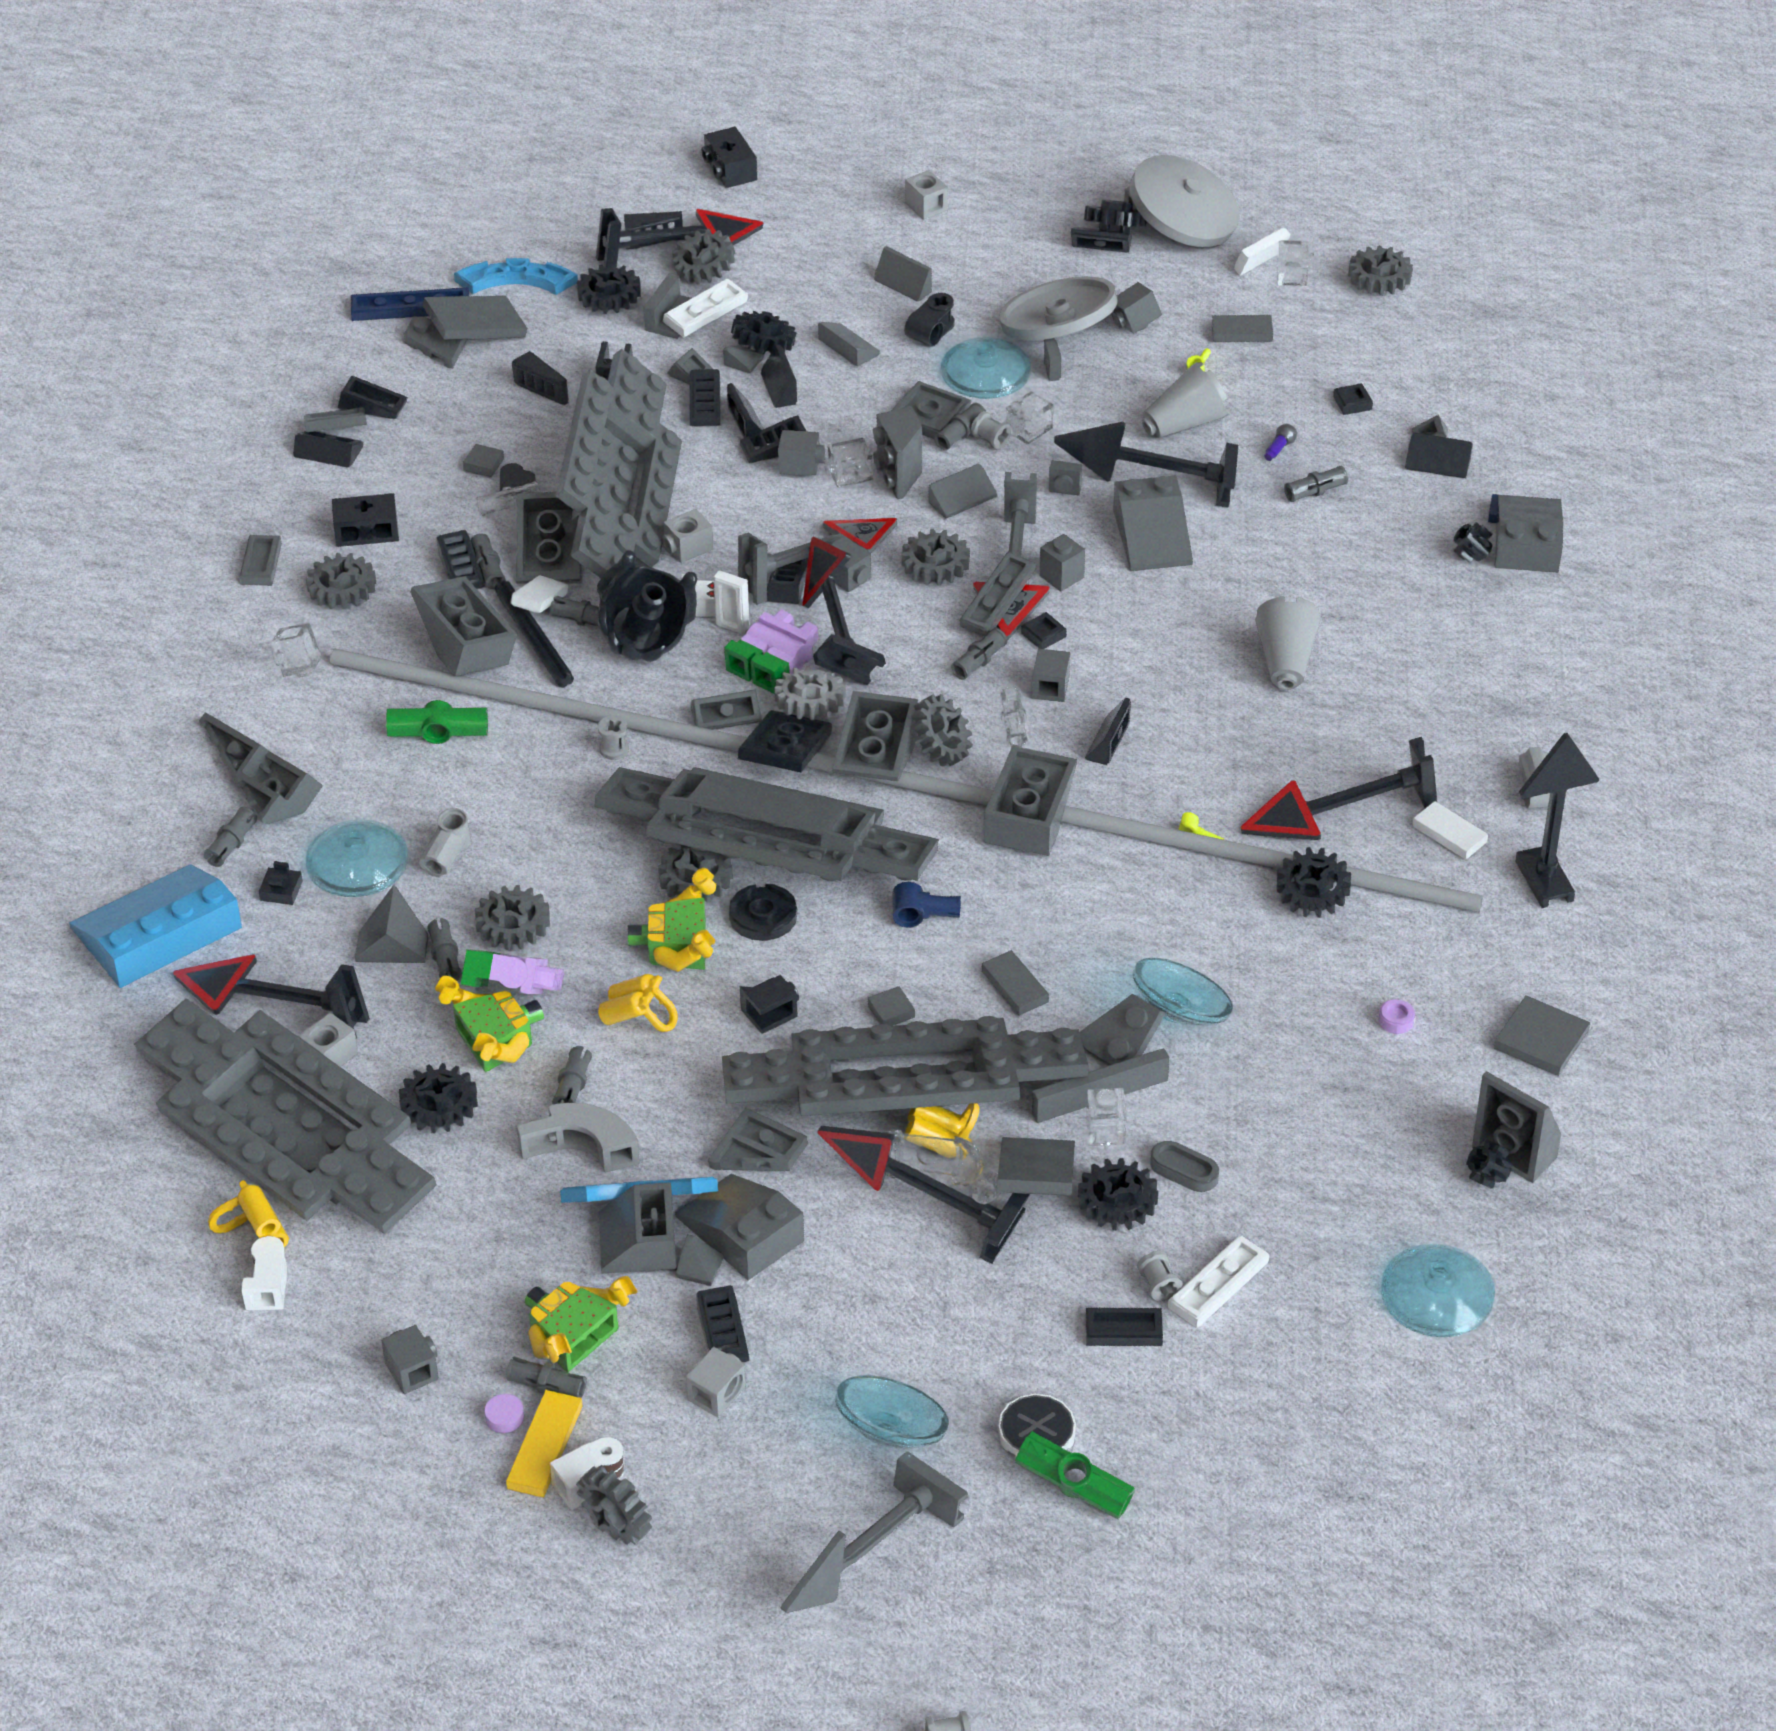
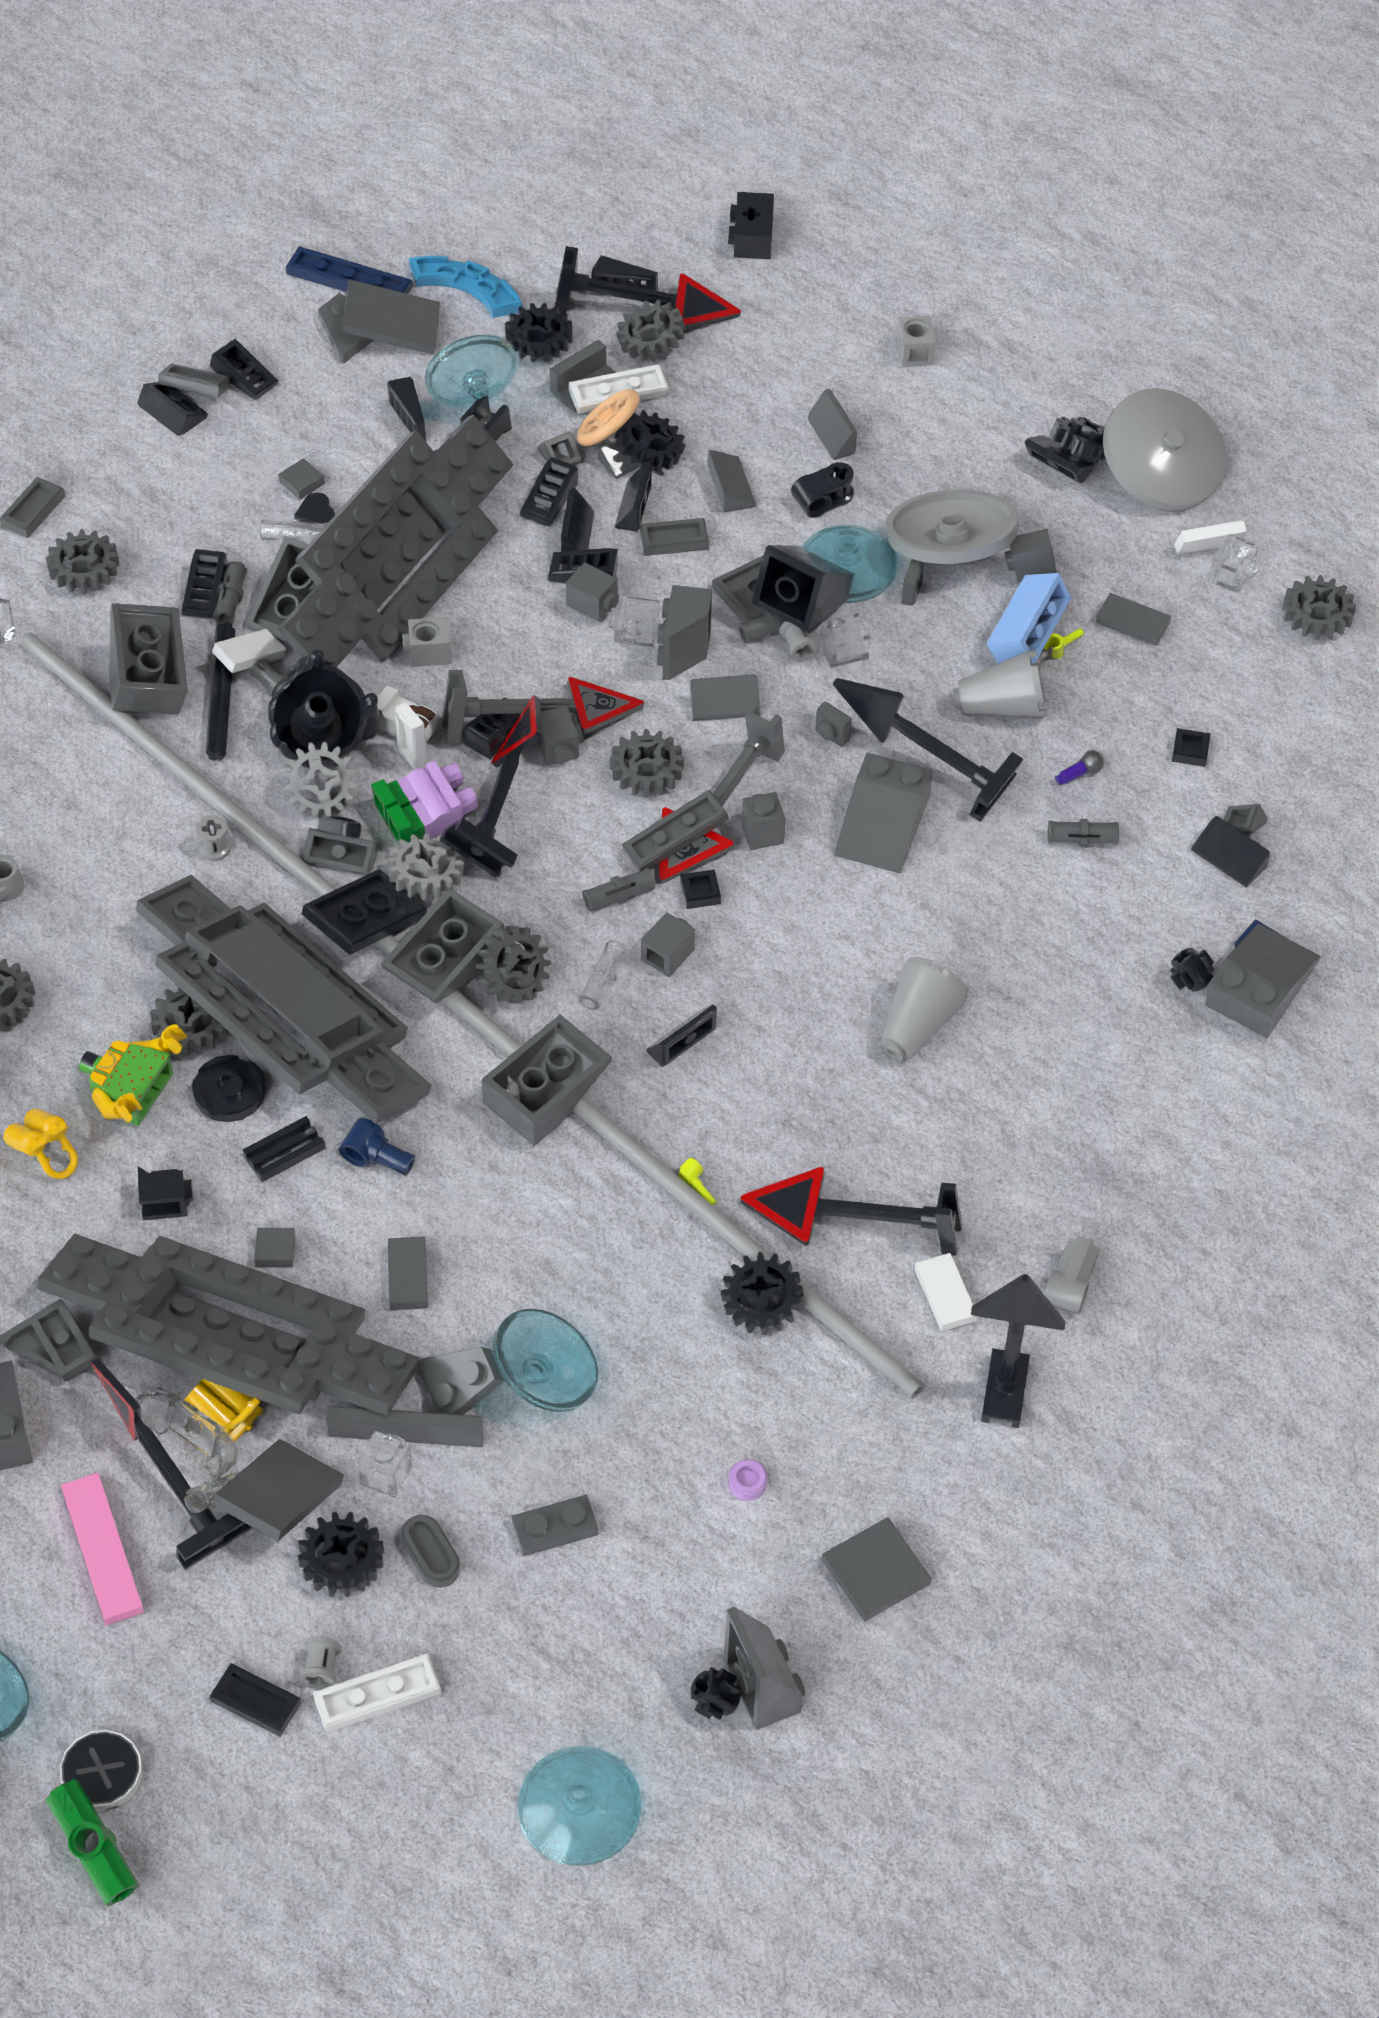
camera: 25 degrees right, 10 degrees up
(365, 520) = (147, 502): black brick -> none
(437, 722) = (68, 752): green piece -> none
(584, 326) = (471, 370): none -> clear light blue dish
(668, 648) = (315, 763): none -> light grey gear
(718, 326) = (608, 417): none -> light nougat plate
(719, 688) = (340, 826): none -> black tile
(829, 936) = (280, 1144): none -> black tile
(831, 396) = (674, 536): none -> dark grey tile
(914, 1274) = (102, 1549): none -> bright pink tile
(974, 384) = (800, 585): none -> black slope
(1165, 349) = (1030, 617): none -> light blue brick
(1270, 1108) = (554, 1525): none -> dark grey plate

